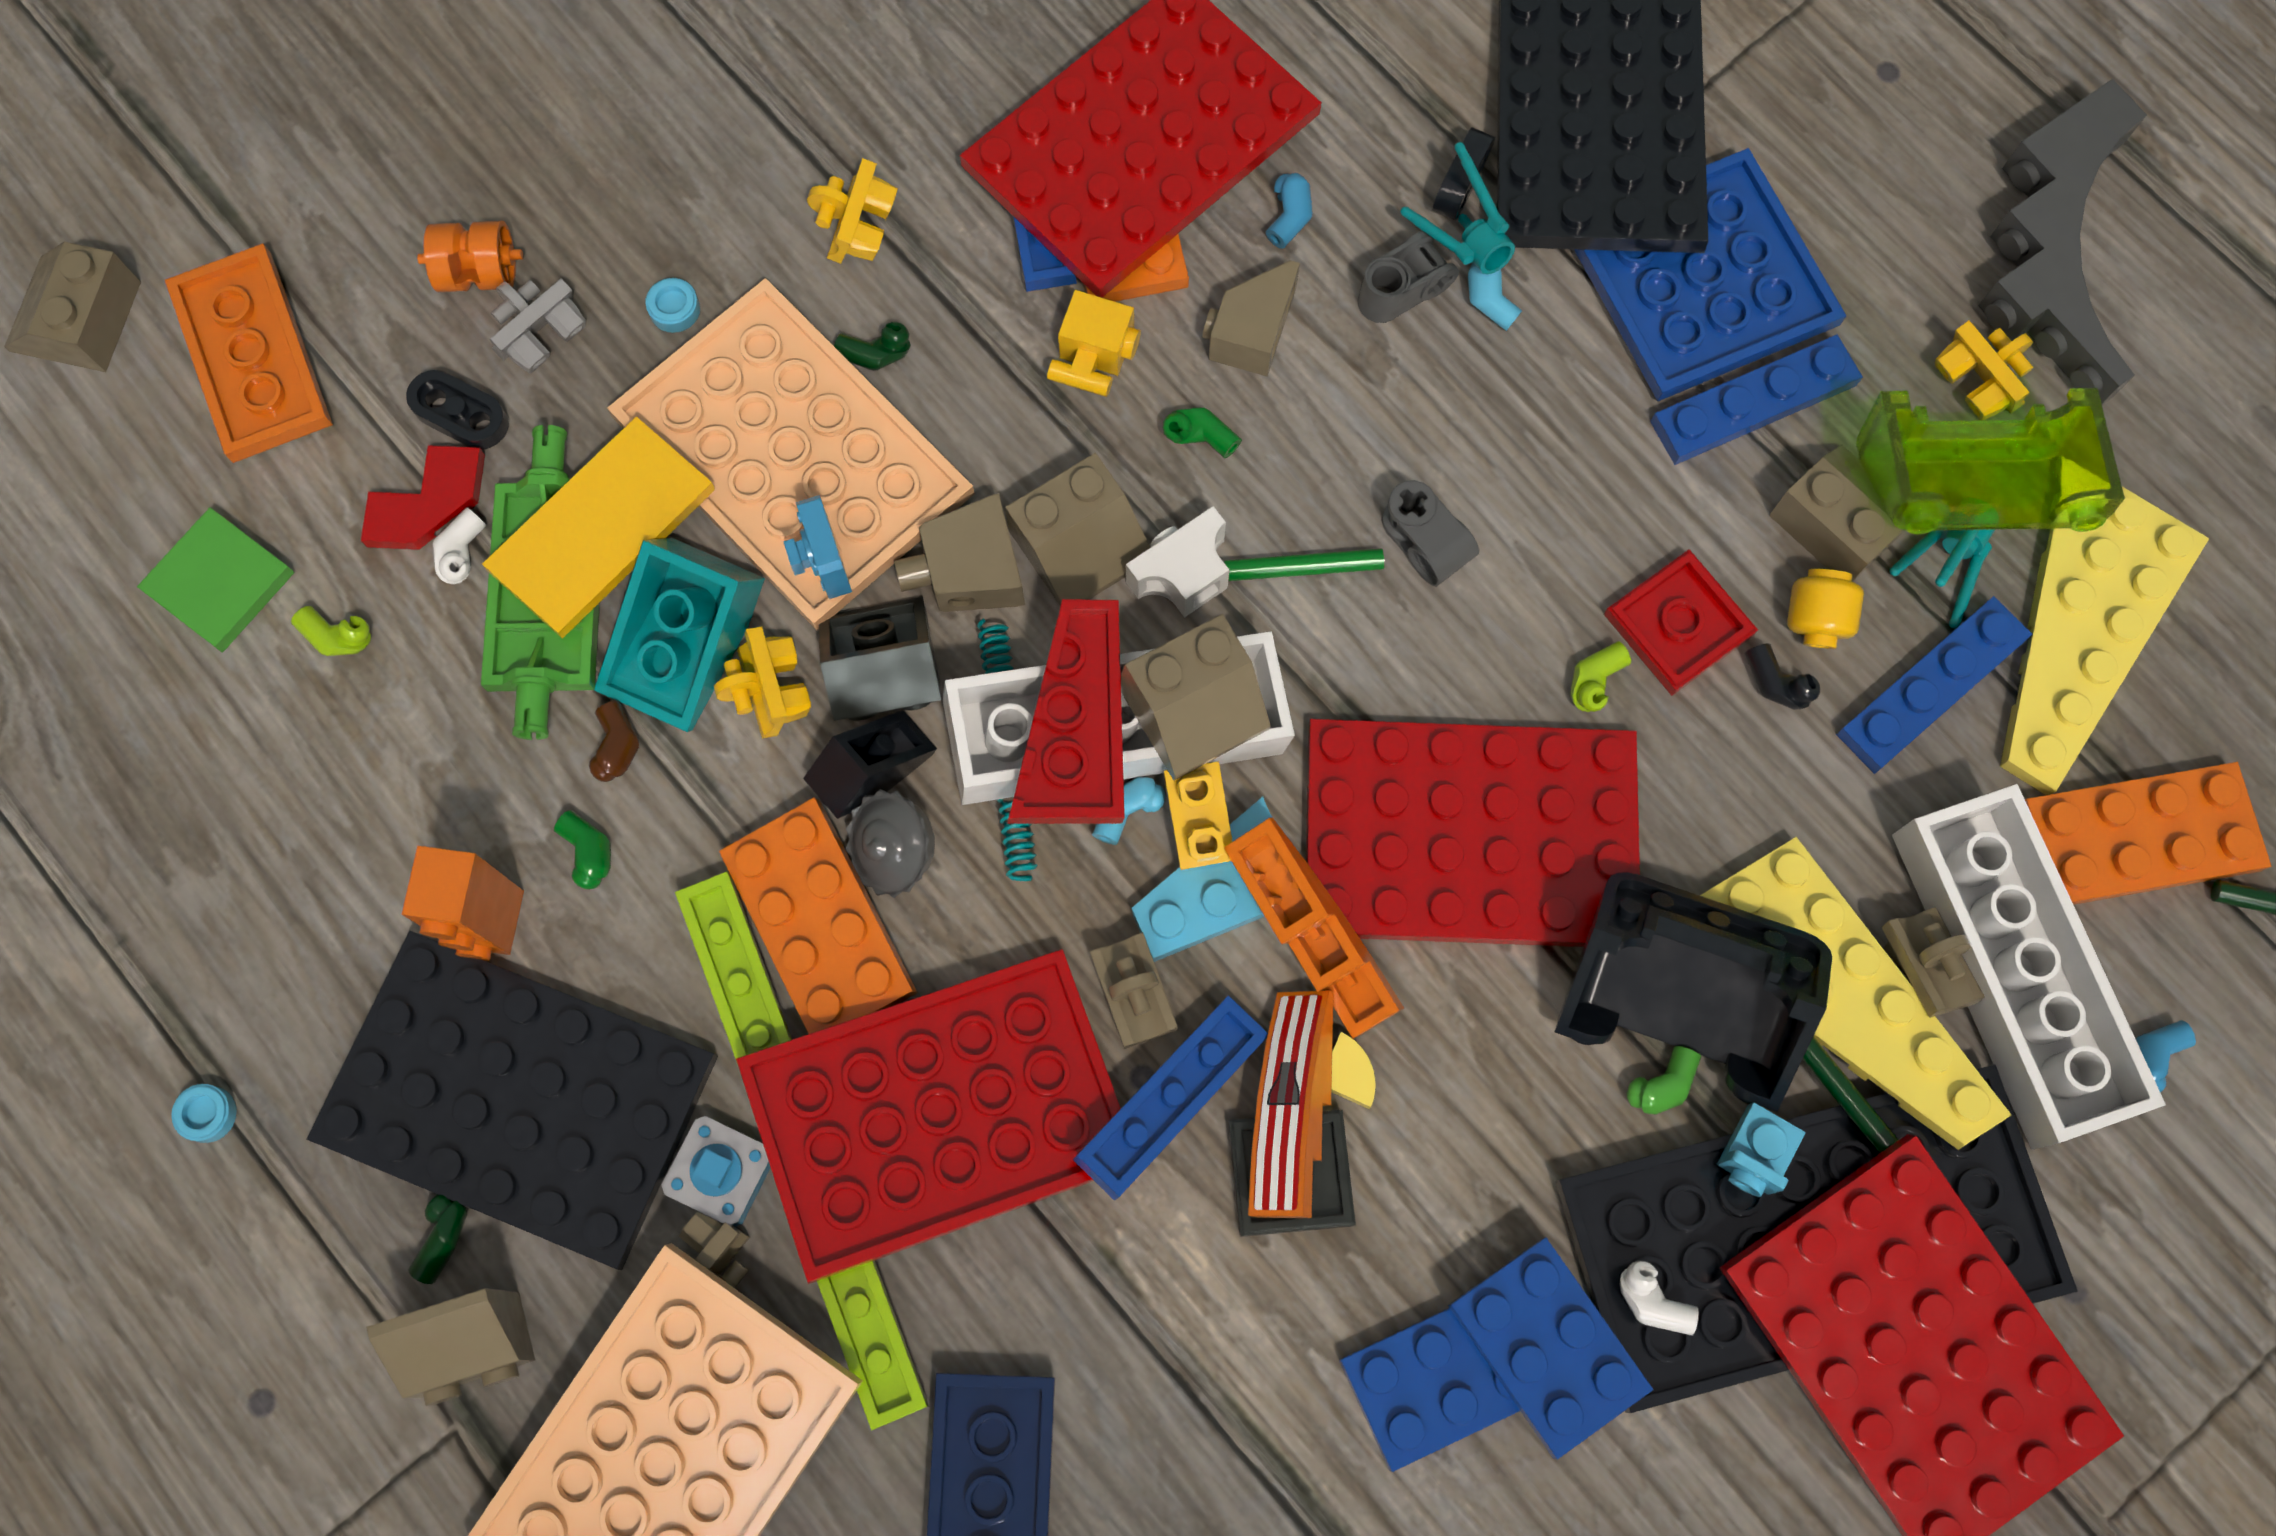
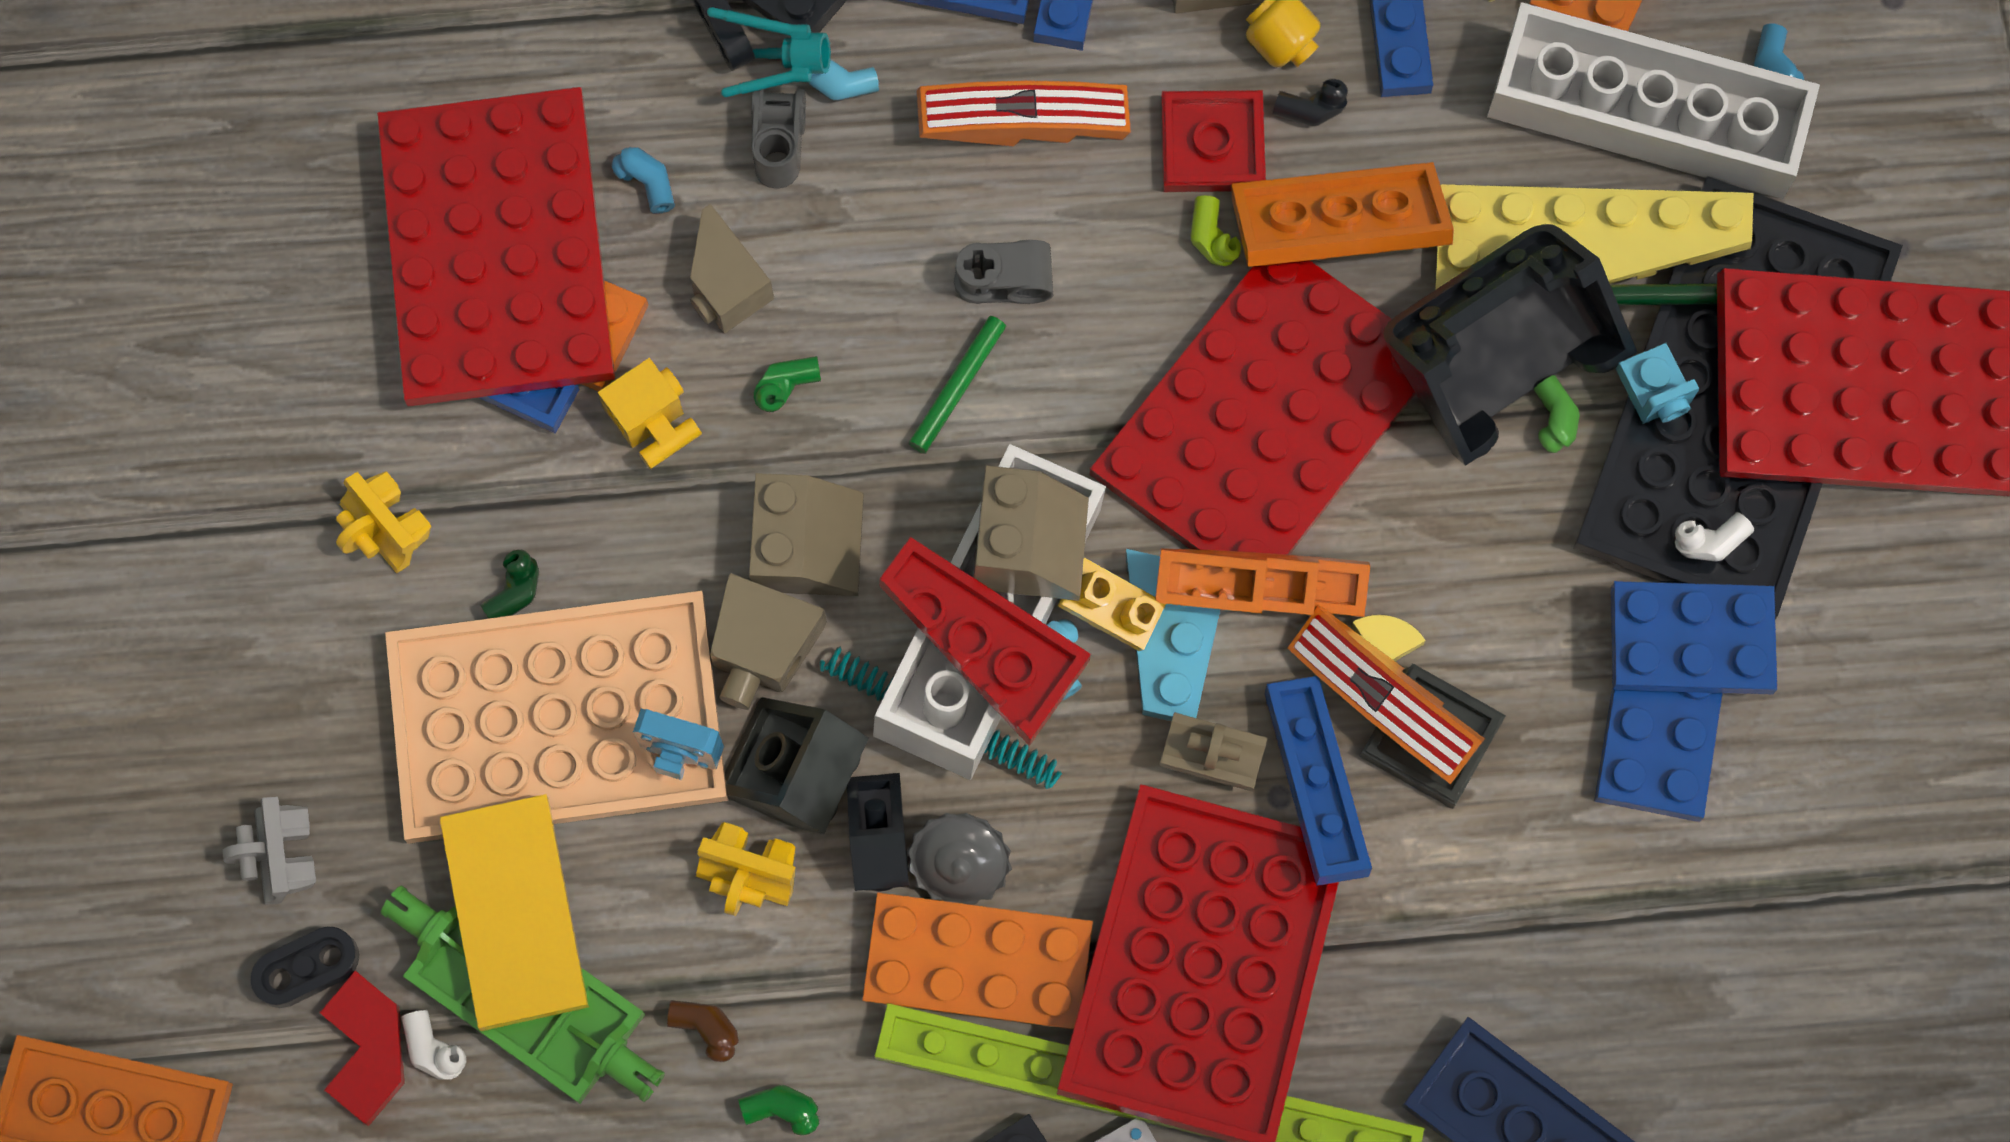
camera: 55 degrees left, 0 degrees up
(464, 257) = (172, 864): orange wheel -> none
(672, 305) = (342, 727): medium azure tile -> none
(676, 630) = (649, 912): teal slope -> none
(1183, 564) = (892, 473): white brick -> none
(1580, 449) = (1022, 110): none -> slope
(1698, 769) = (1341, 214): none -> orange plate
(1932, 961) = (1604, 161): dark tan hips -> none

